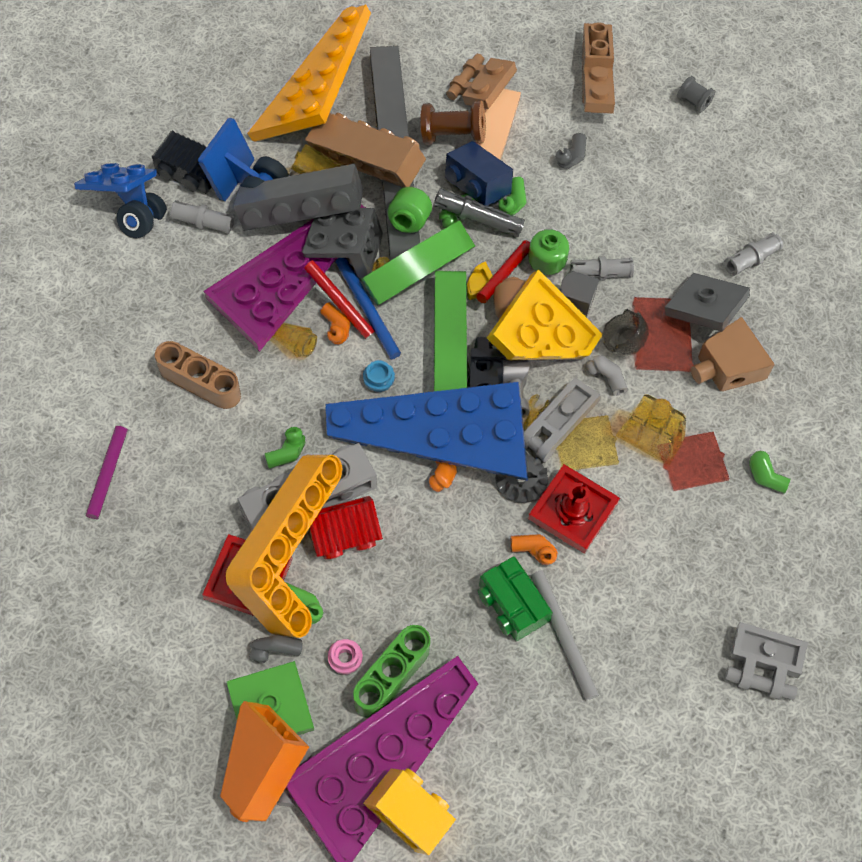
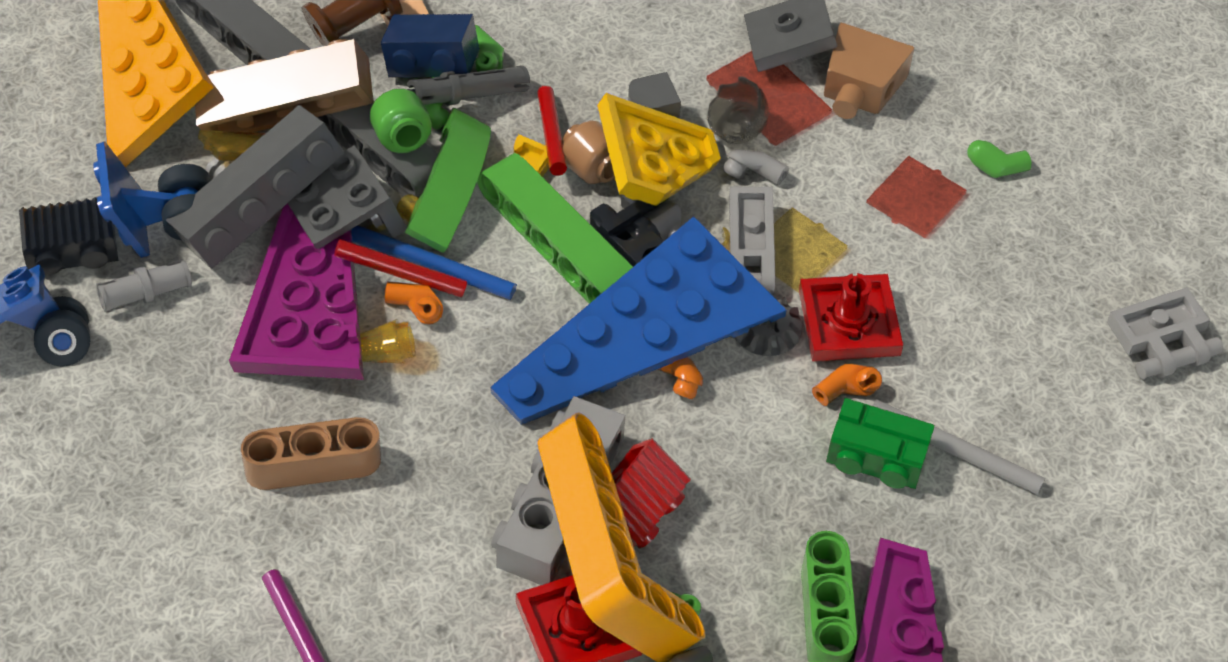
camera: 40 degrees left, 10 degrees down
(290, 450) = (492, 463): bright green arm -> none
(340, 647) = (764, 616): bright pink plate -> none
(378, 376) = (517, 322): dark azure plate -> none
(548, 251) = (581, 80): bright green head -> none
(604, 268) = (647, 64): light grey pin -> none
(654, 428) = (855, 183): clear yellow torso -> none

